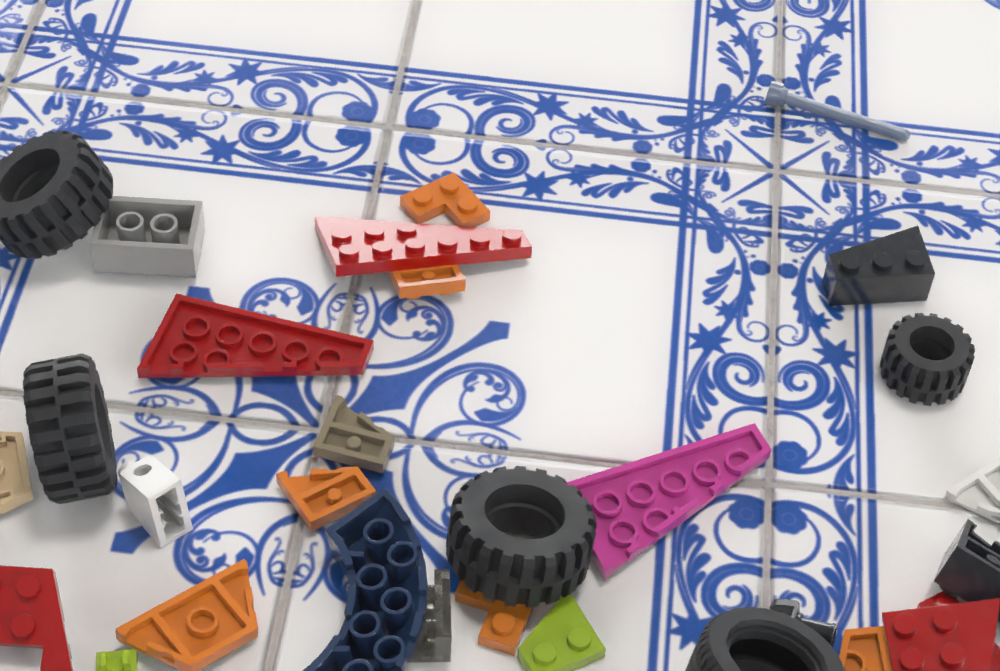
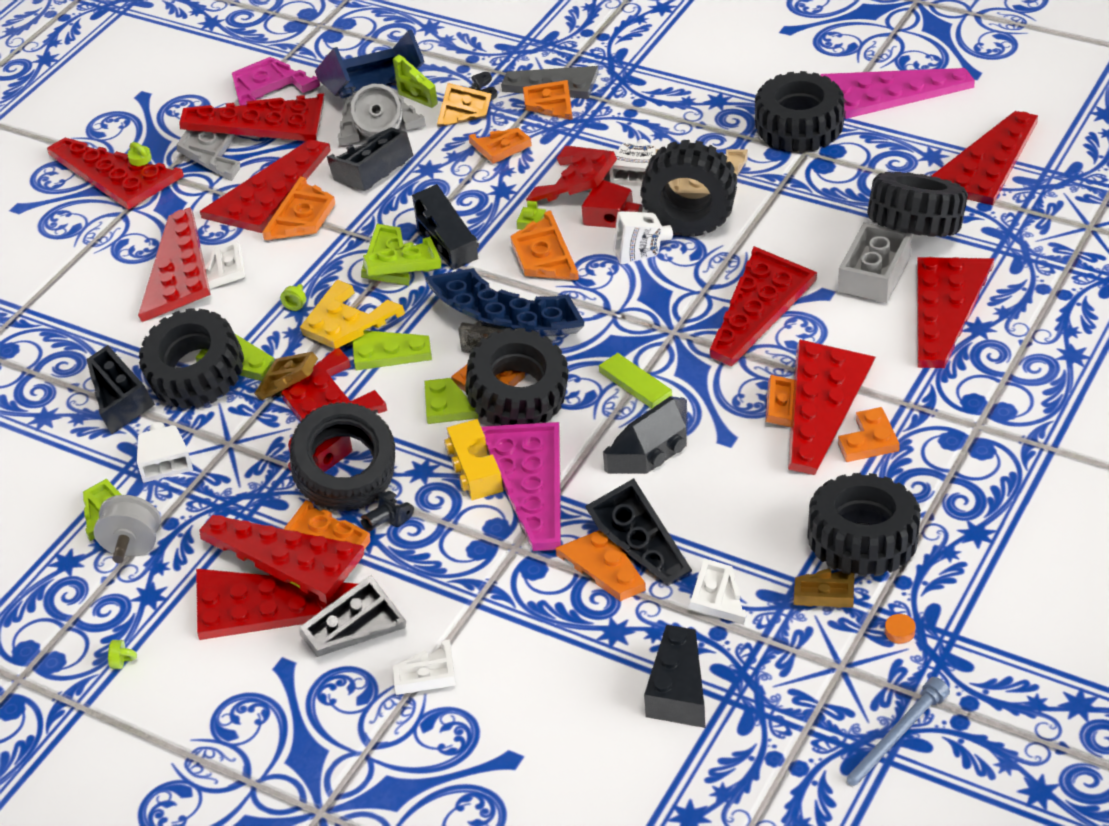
camera: 120 degrees right, 5 degrees down
(78, 561) = (605, 202): none -> red torso
(200, 174) = (944, 303): none -> red wing
(326, 493) = (612, 317): orange wing -> none
(353, 439) = (651, 337): dark tan wing -> none
(436, 439) = (635, 380): none -> lime tile
(544, 379) = (649, 439): none -> black wedge
(617, 186) = (858, 547): none -> black tyre
(643, 579) = (478, 473): none -> yellow arch
(690, 189) = (825, 589): none -> pearl gold wing
(698, 357) = (635, 527): none -> black wedge
(709, 133) = (900, 628): none -> orange tile
(744, 274) = (717, 592): none -> white wing
(750, 386) = (605, 563): none -> orange wing
(924, 379) = (574, 685): black tyre -> none

